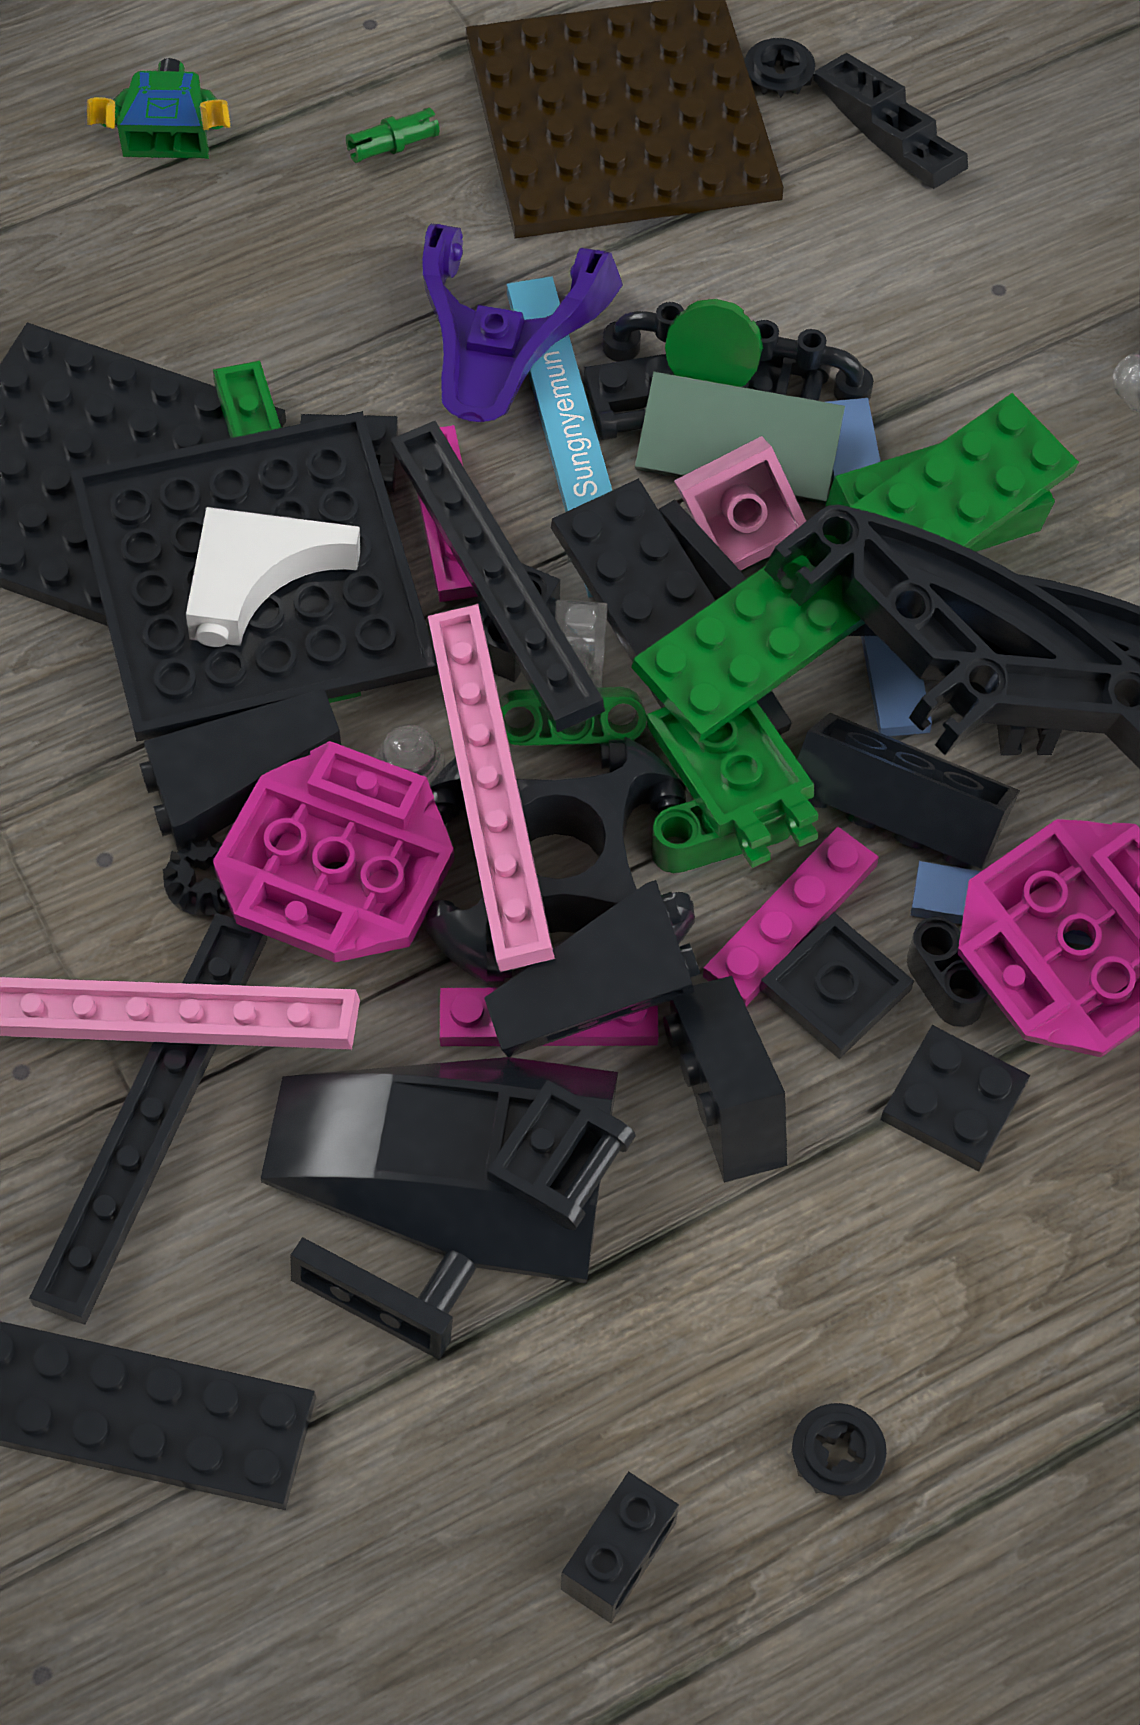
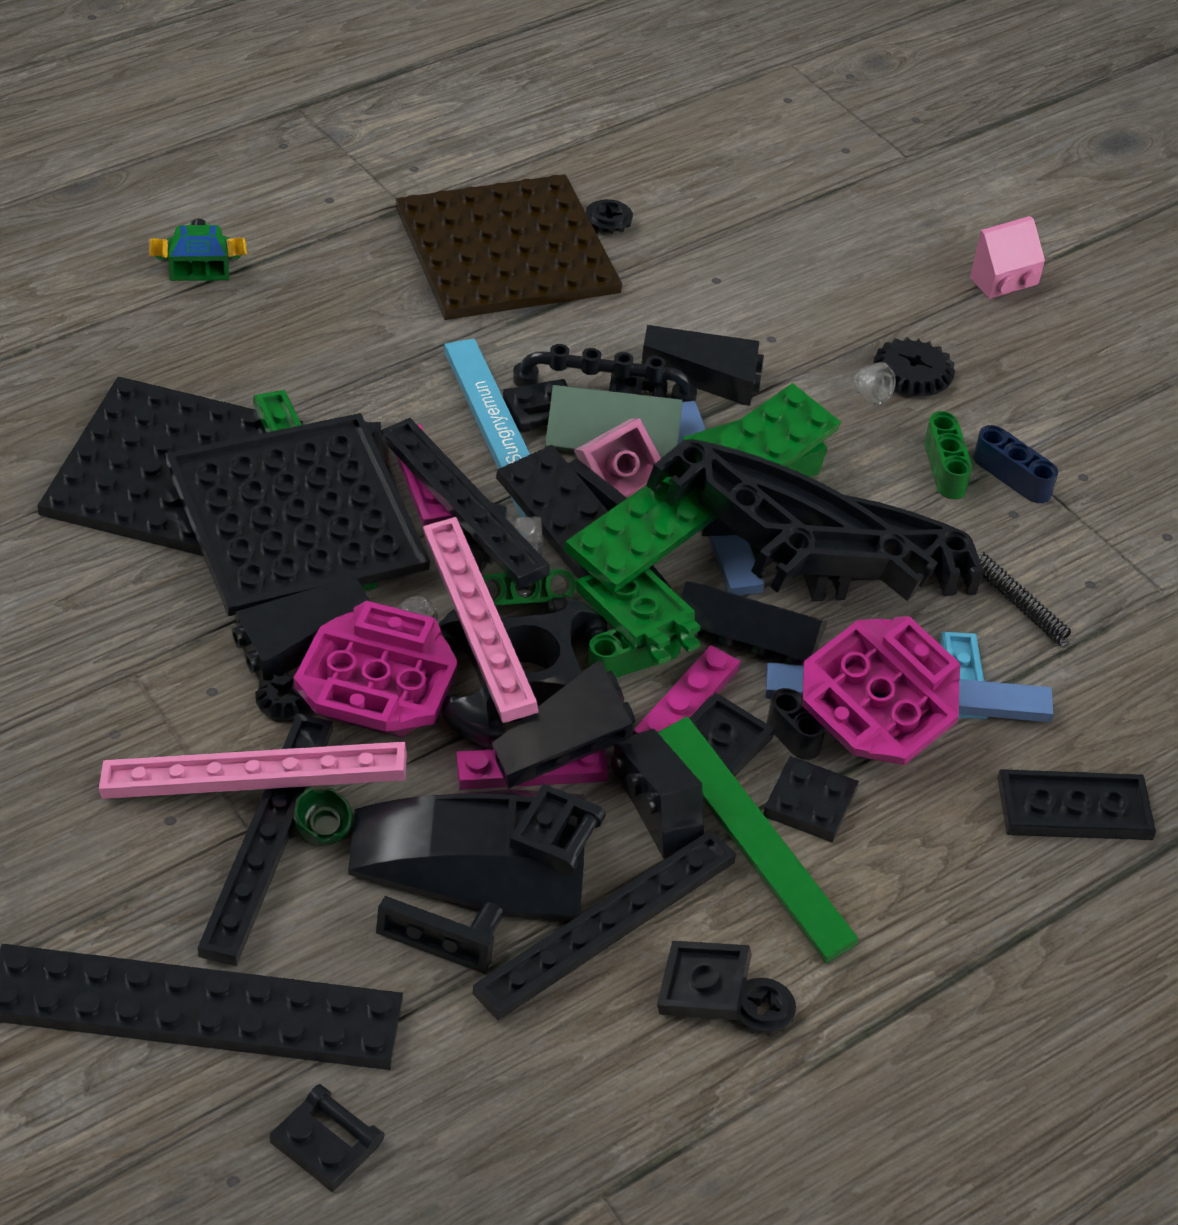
camera: 10 degrees left, 15 degrees down
(164, 1634) = (317, 1147): none -> black plate
(231, 1090) = (322, 816): none -> dark green hair
(249, 558) = (300, 496): white arch -> none
(392, 135) = (354, 261): green pin -> none
(496, 347) = (442, 379): dark purple animal -> none
(619, 1547) = (625, 1068): black brick -> none
(620, 1296) = (602, 925): none -> black plate
(714, 343) = (591, 365): green tile -> none
(755, 1405) = (704, 980): none -> black plate
(864, 1170) = (761, 844): none -> green tile
(882, 114) = (681, 241): black slope -> none
(894, 330) = (710, 361): none -> black slope

